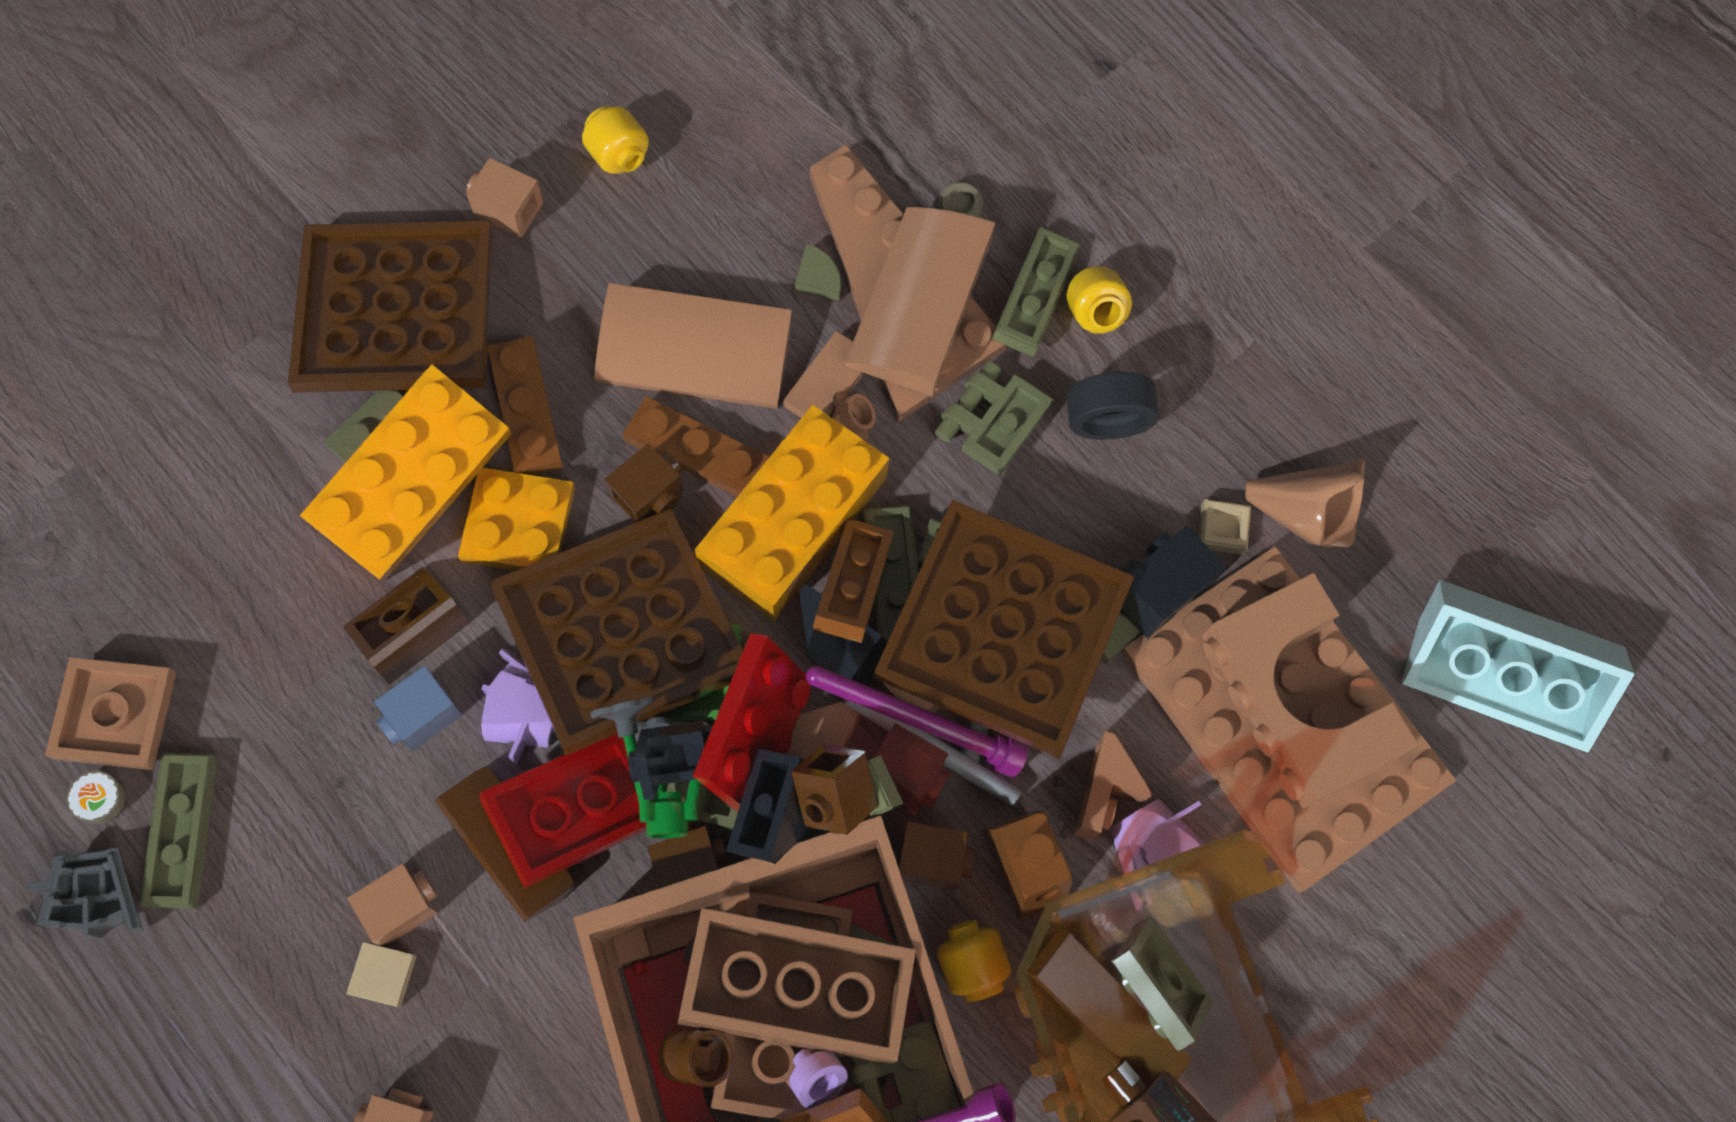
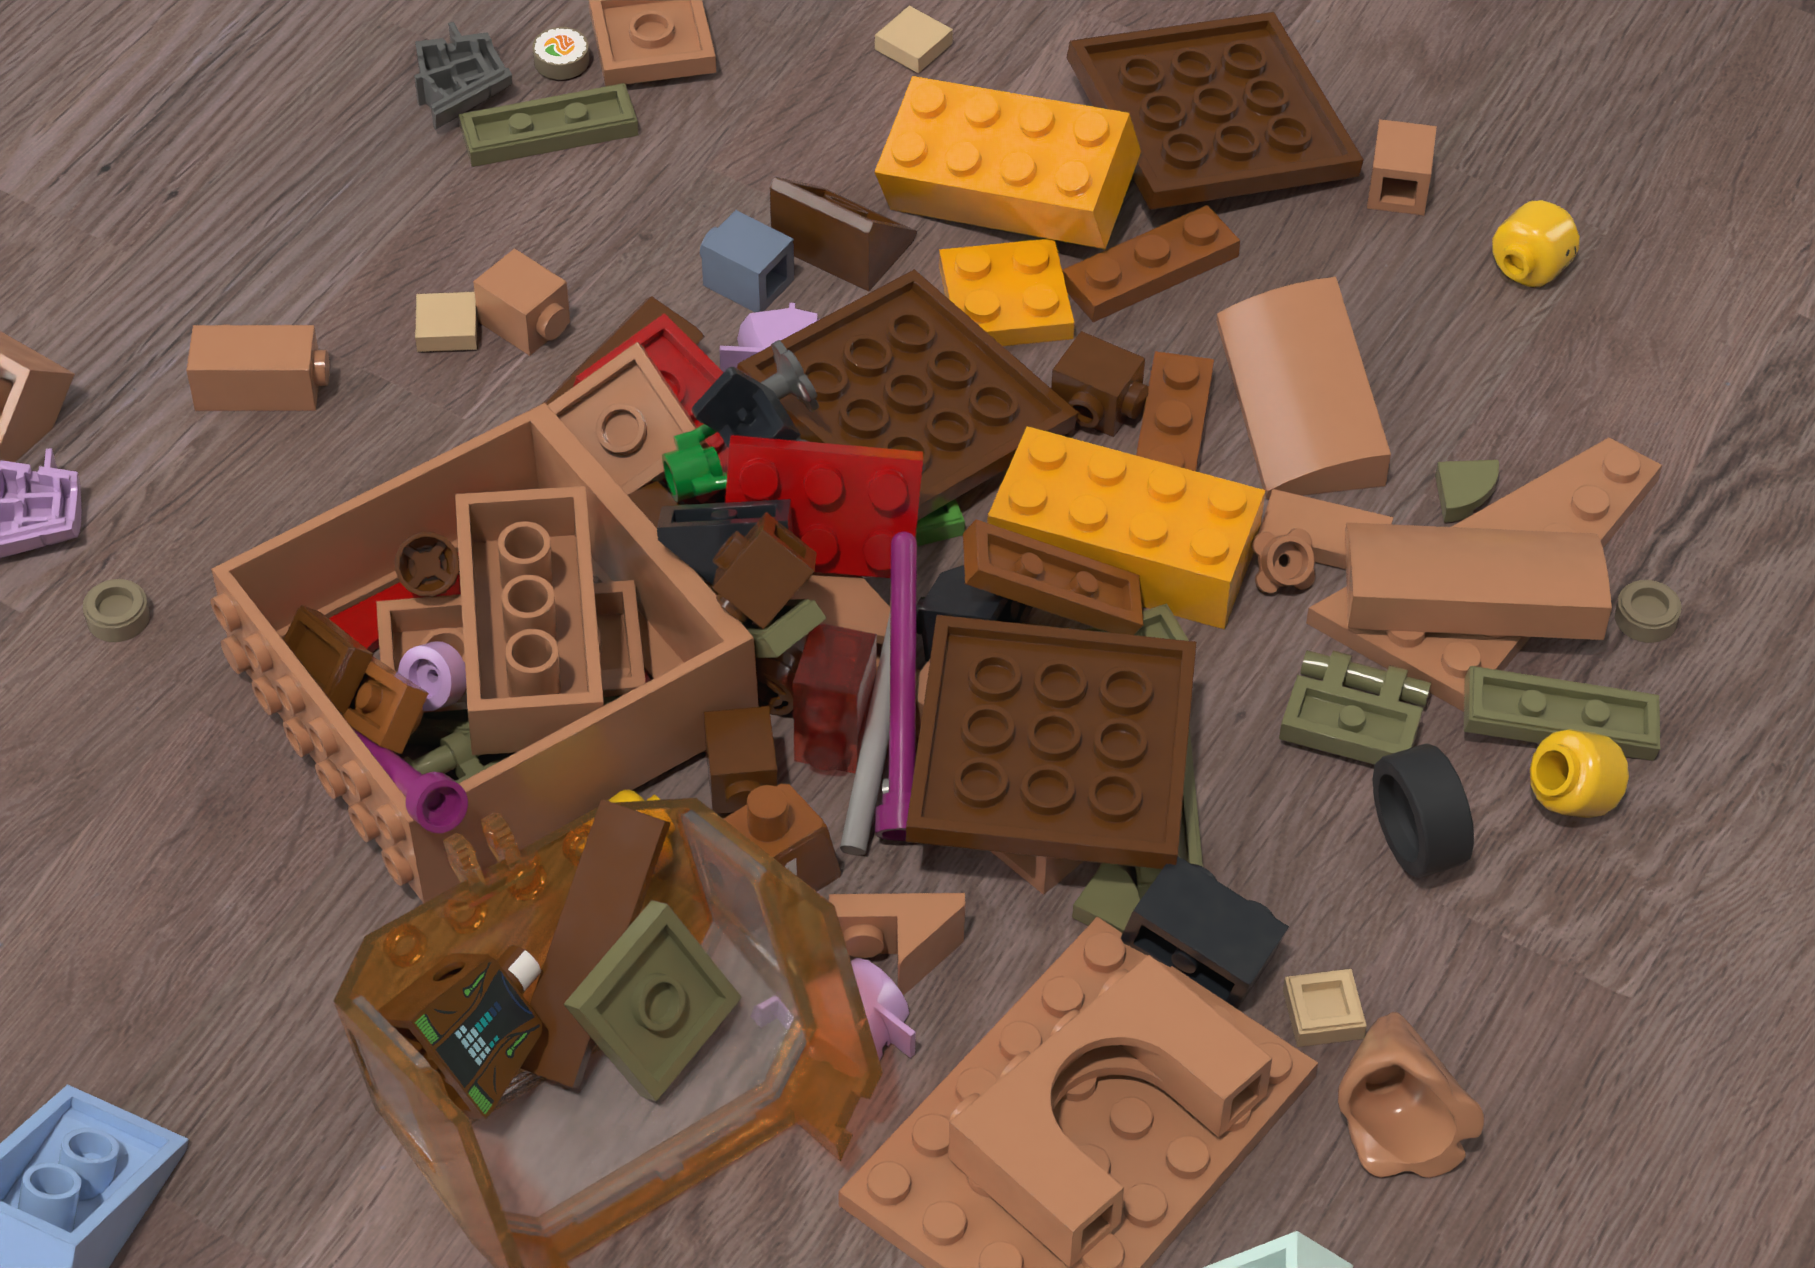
camera: 80 degrees right, 20 degrees down
(206, 502) = (913, 39): none -> tan tile
(594, 857) = (626, 418): none -> nougat plate

